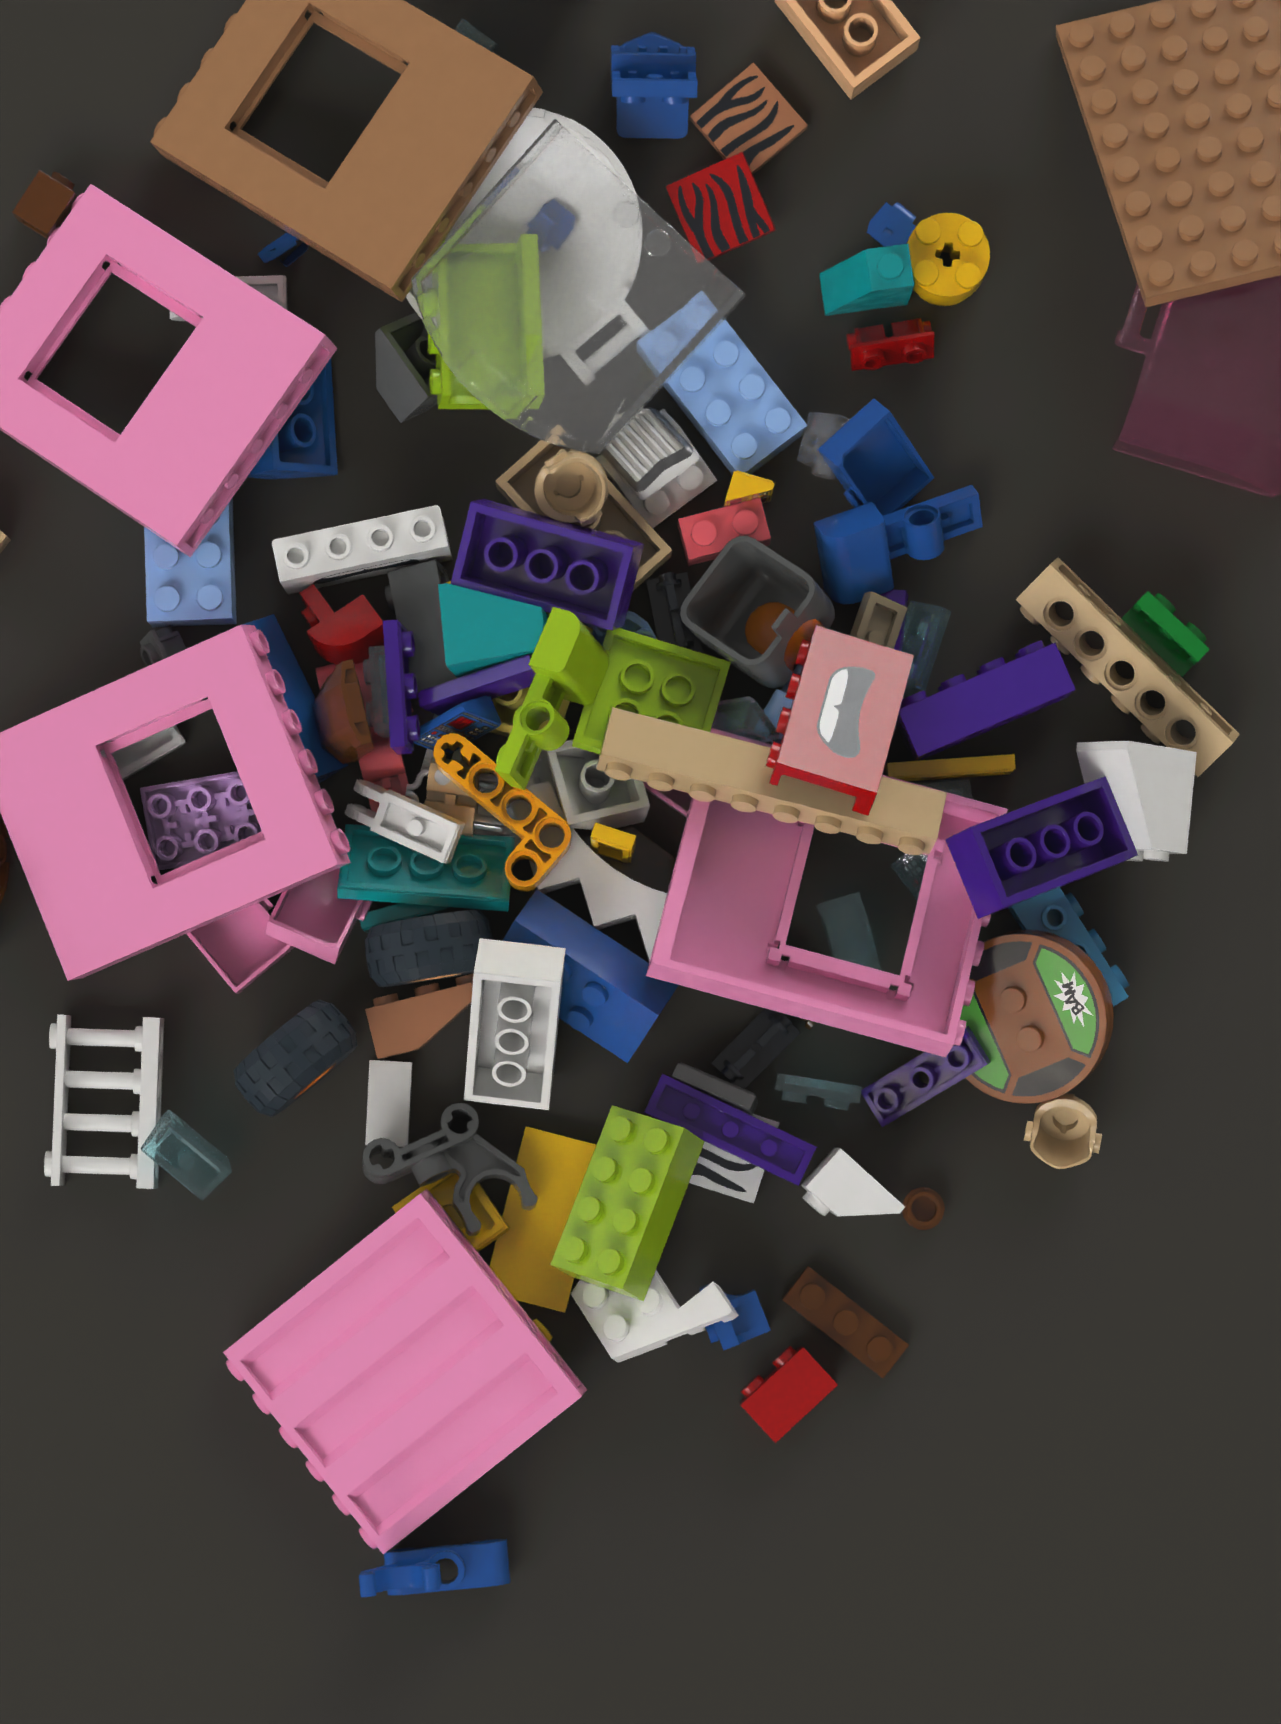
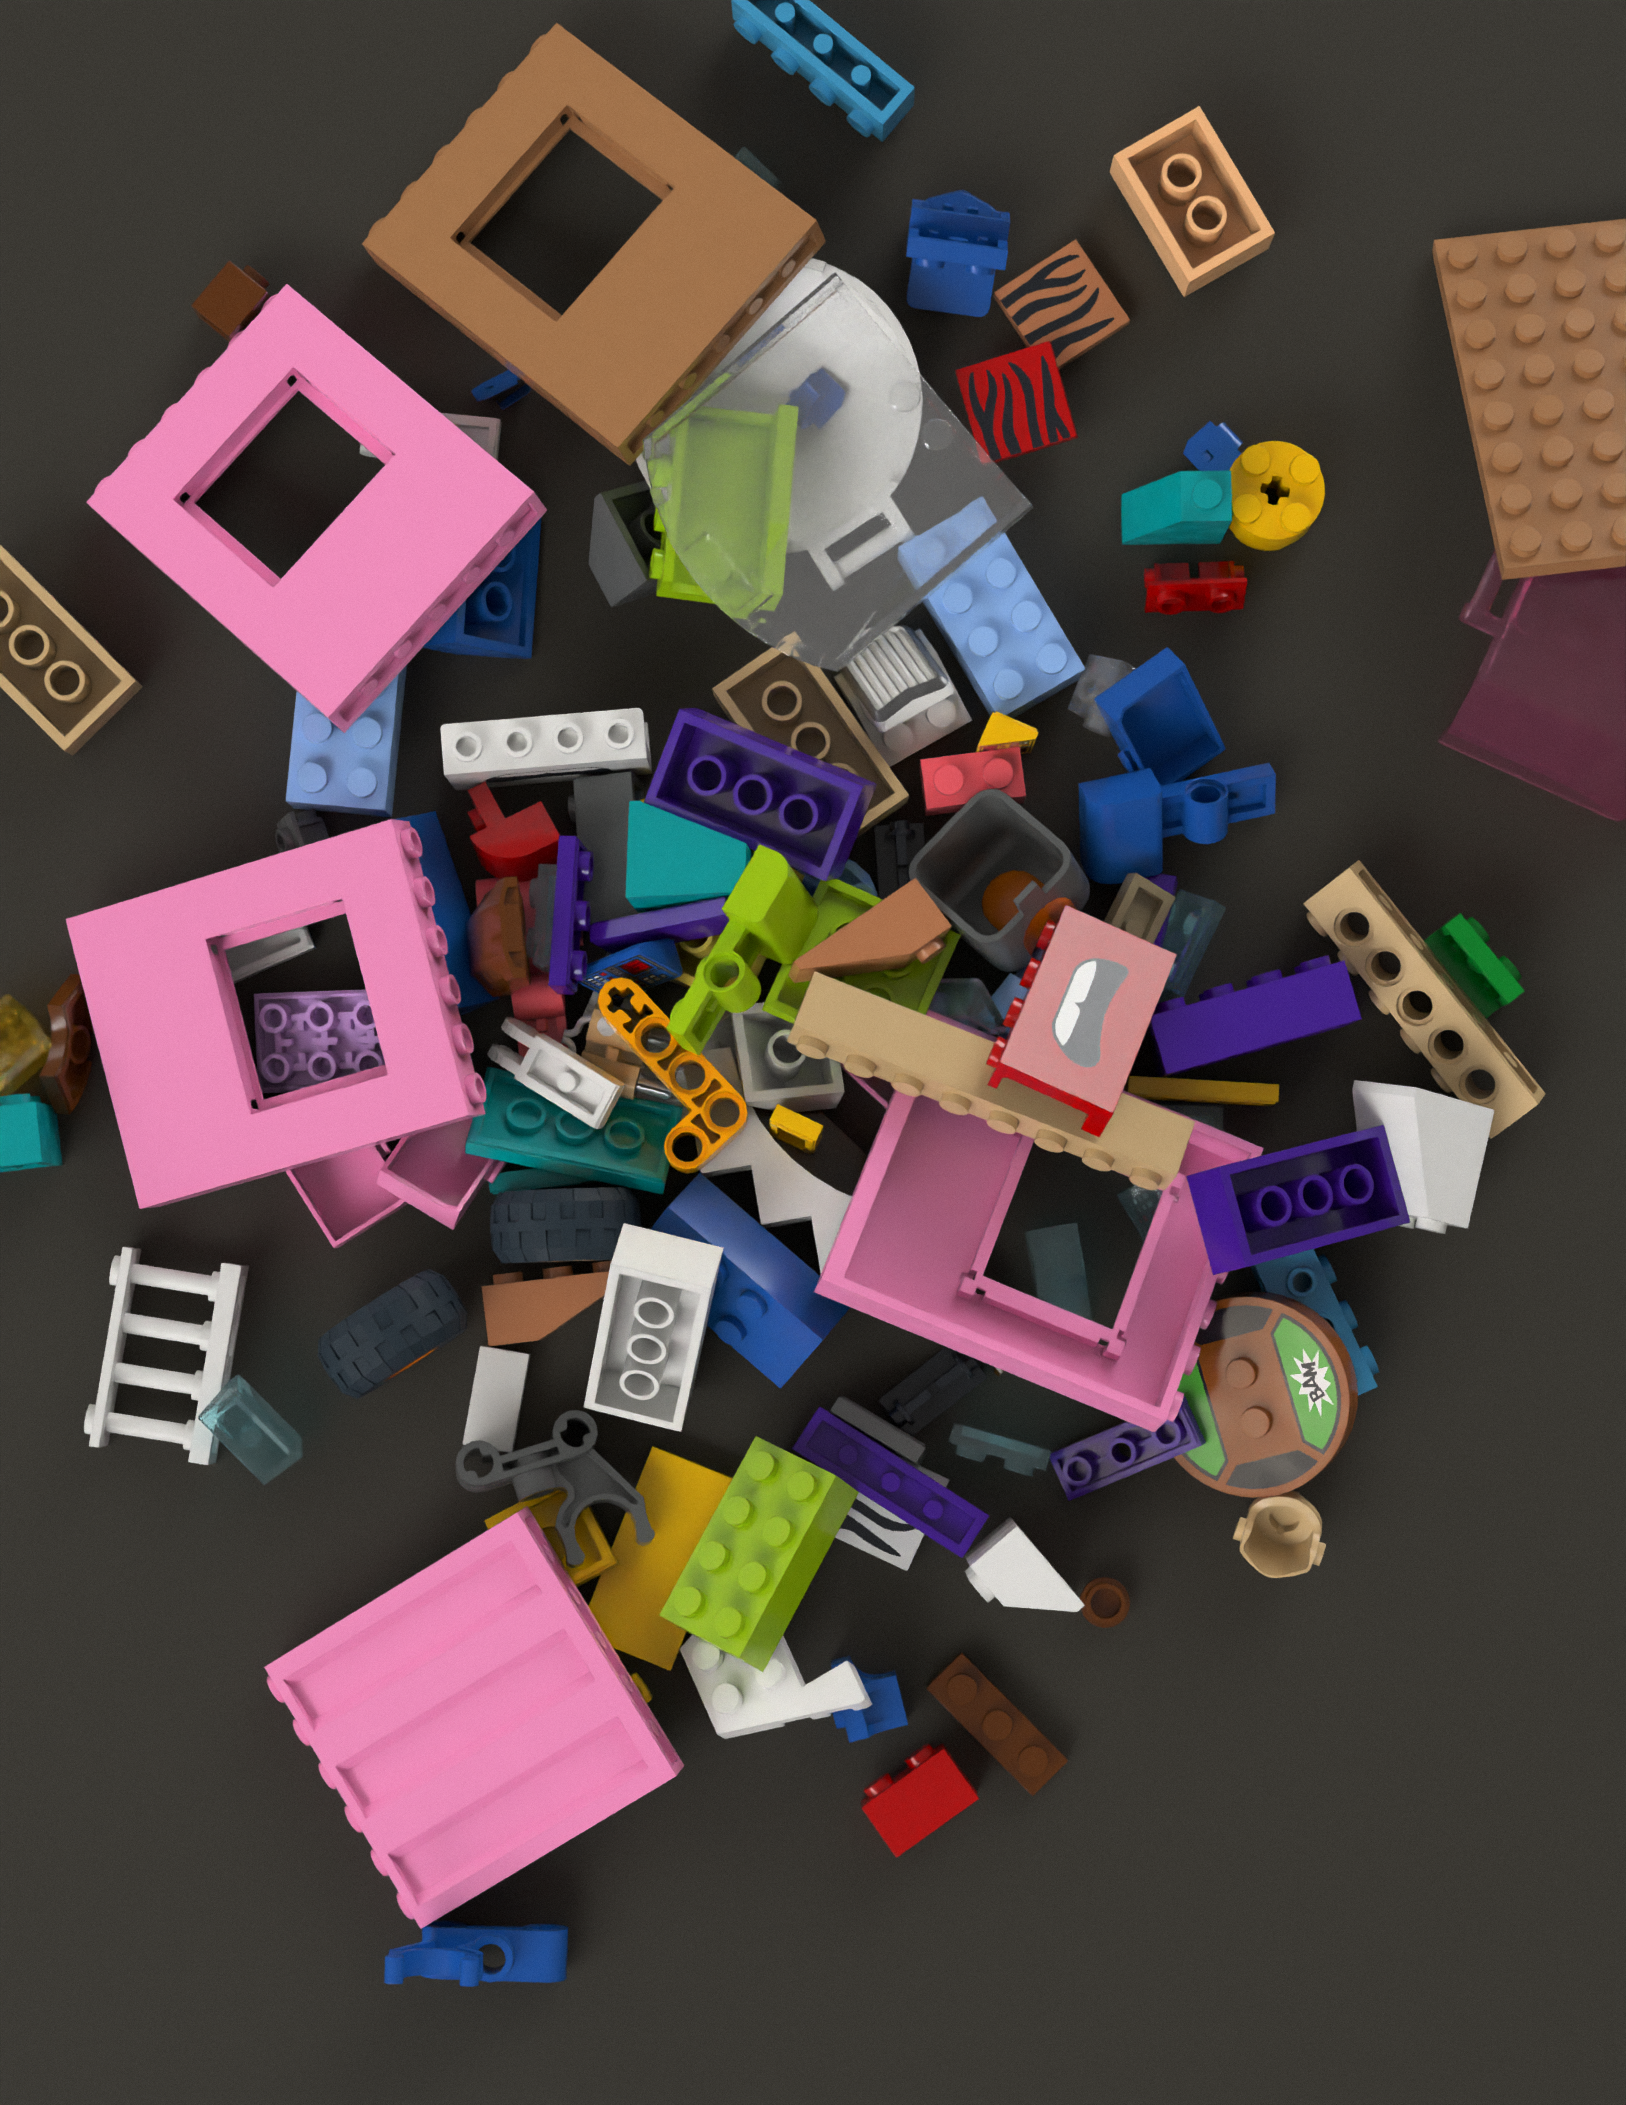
camera: 15 degrees right, 0 degrees up
(572, 487) = (800, 707): tan cap -> none
(663, 674) = (881, 939): none -> nougat slope

